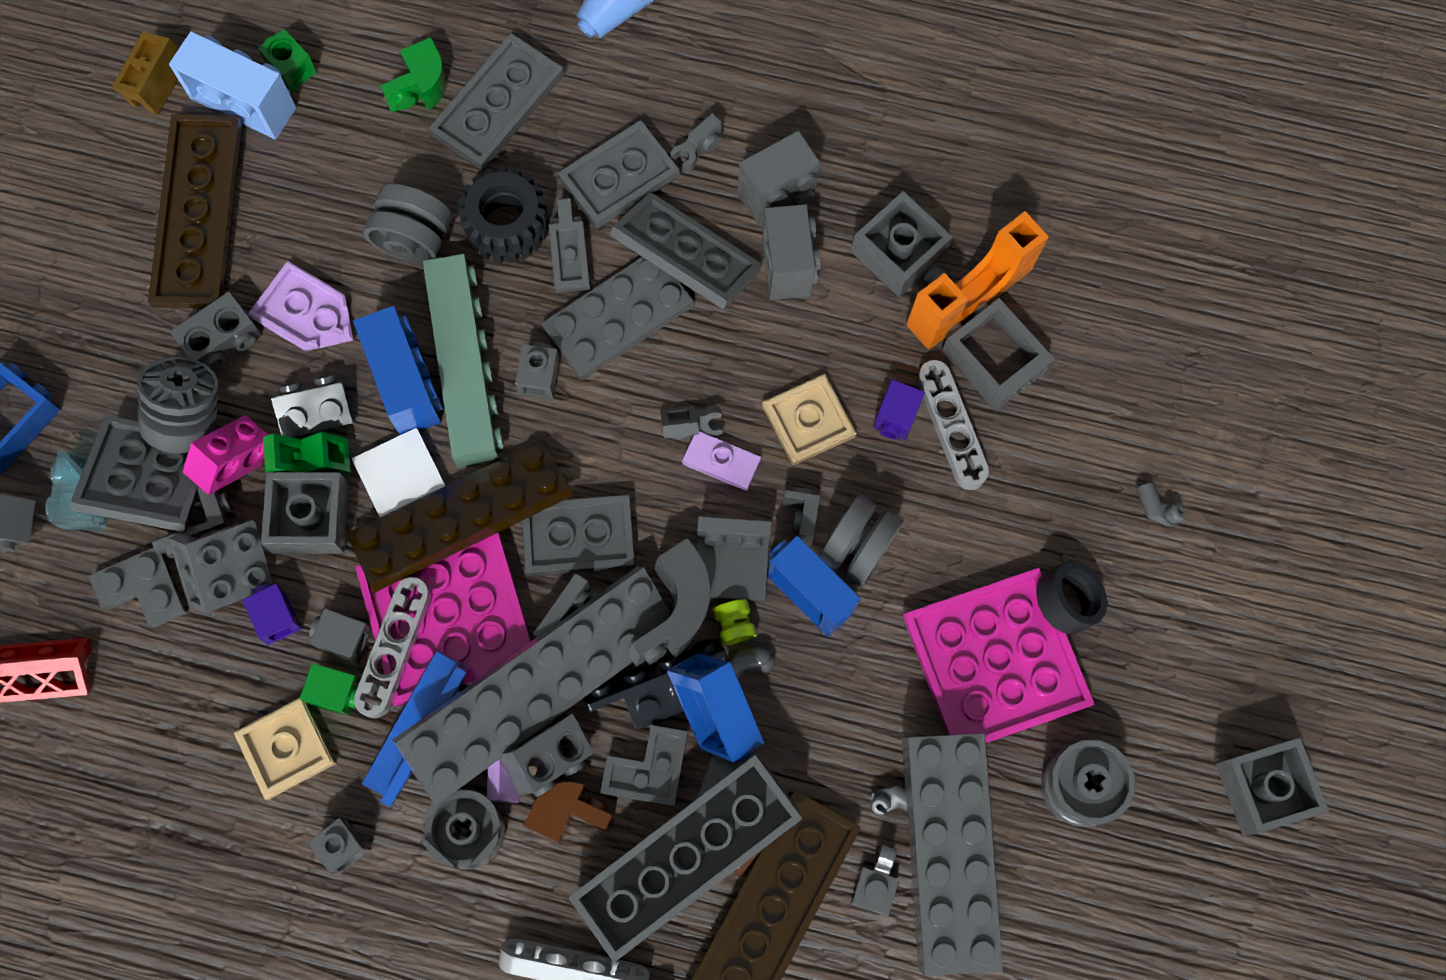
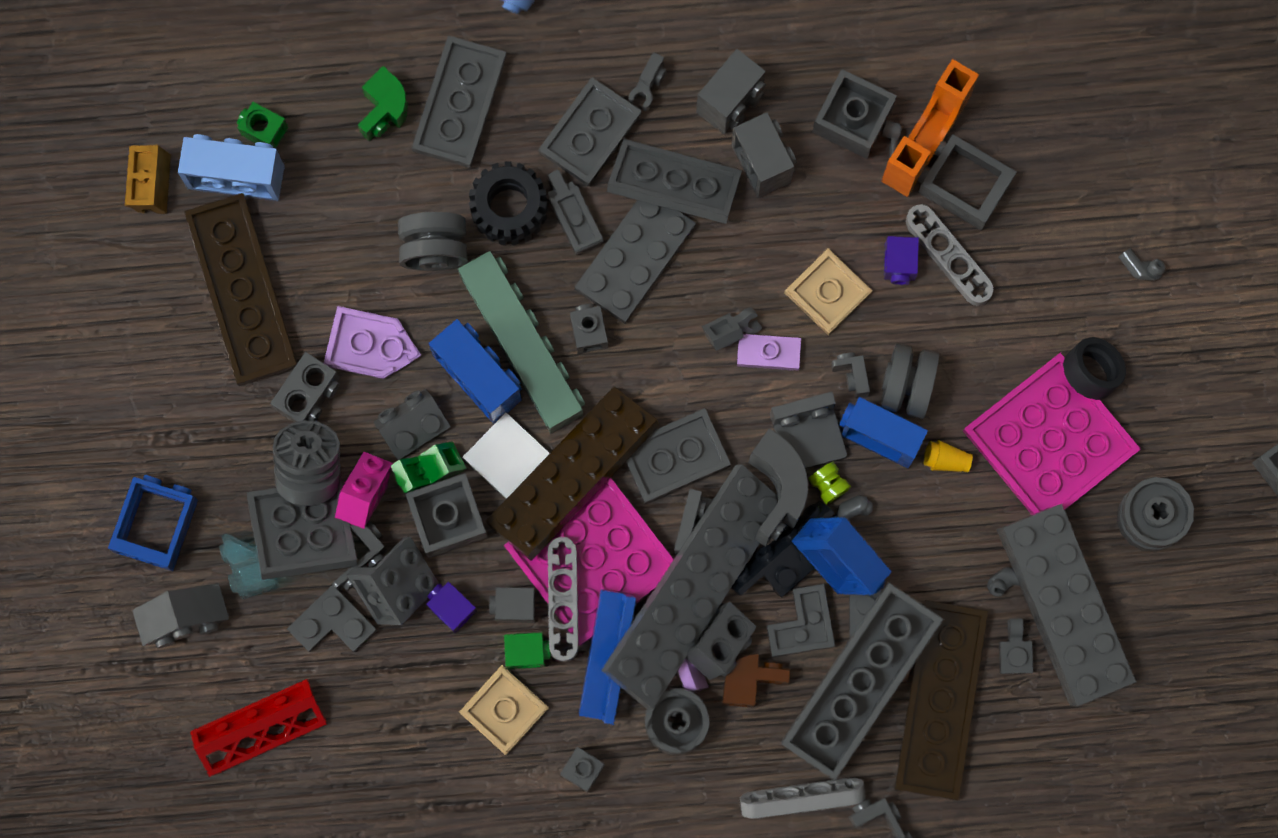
camera: 15 degrees left, 5 degrees up
(874, 639) = (944, 457): none -> yellow cone

